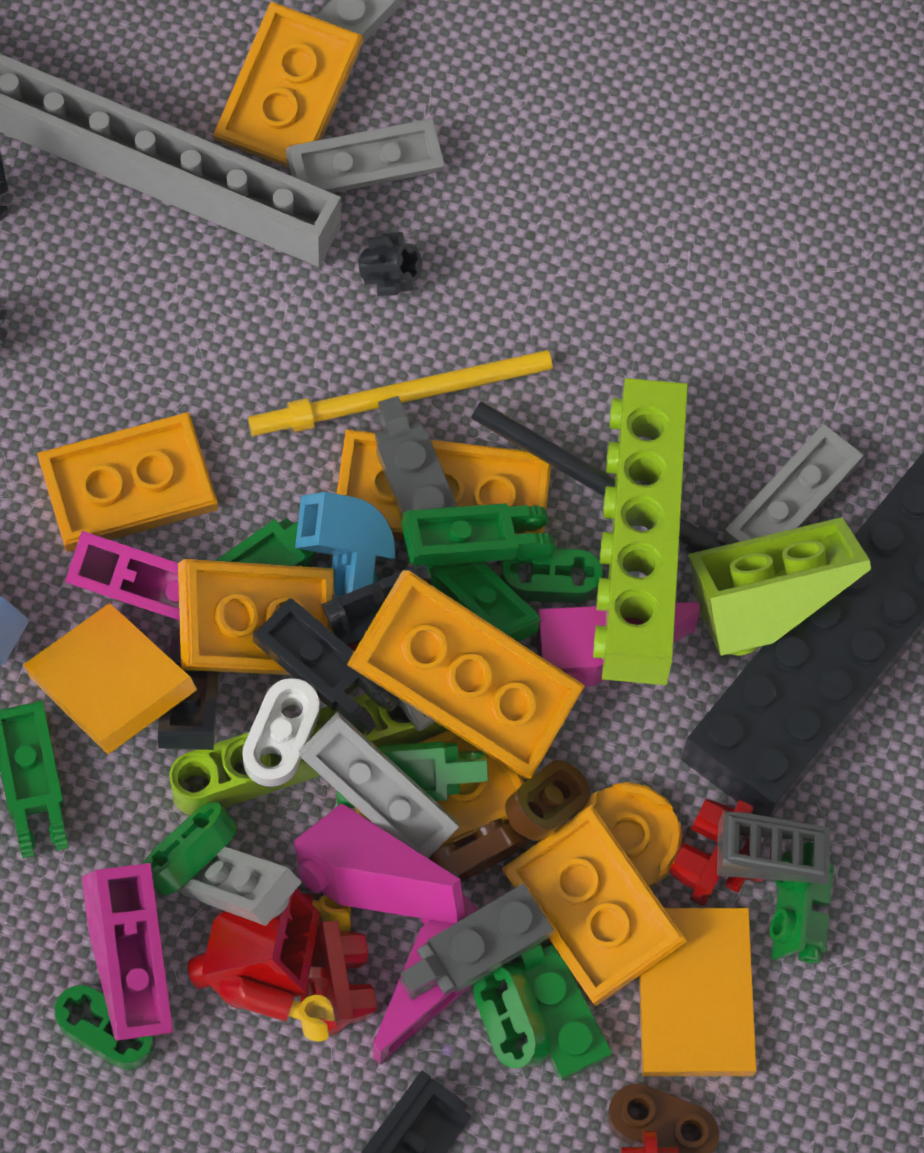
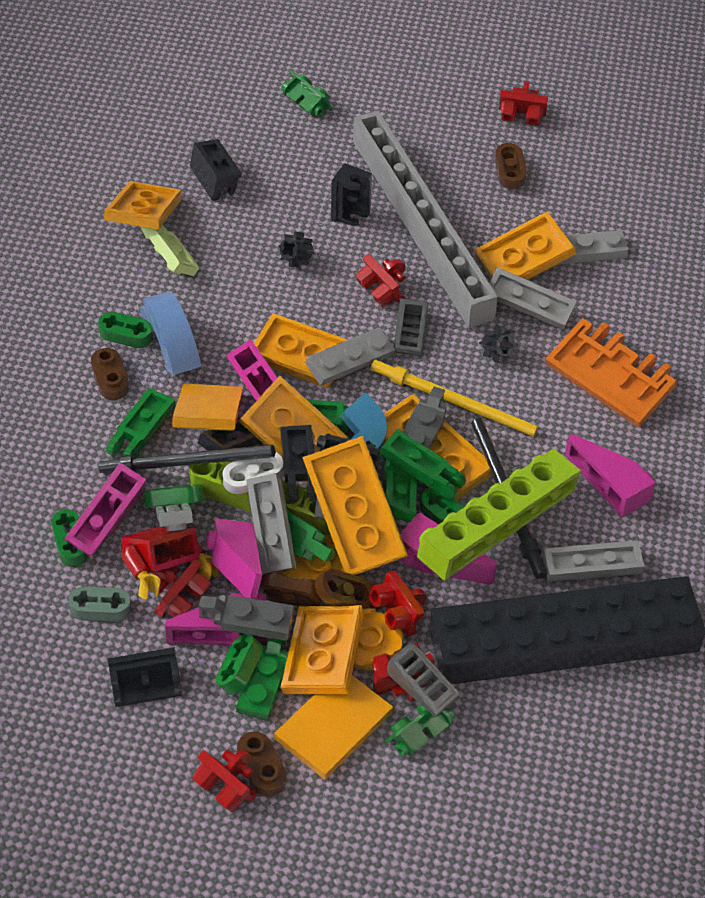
camera: 45 degrees right, 15 degrees down
(82, 849) = (192, 458): none -> black bar
(161, 288) = (386, 277): none -> red hips
(212, 440) = (349, 356): none -> light grey plate
(234, 1077) = (99, 604): none -> sand green beam
(239, 288) = (411, 308): none -> dark grey slope
(566, 197) = (610, 372): none -> orange hinge
(626, 756) = (402, 603): none -> red hips
(712, 351) = (611, 474): none -> dark pink slope
(773, 582) = (525, 572): lime slope -> none

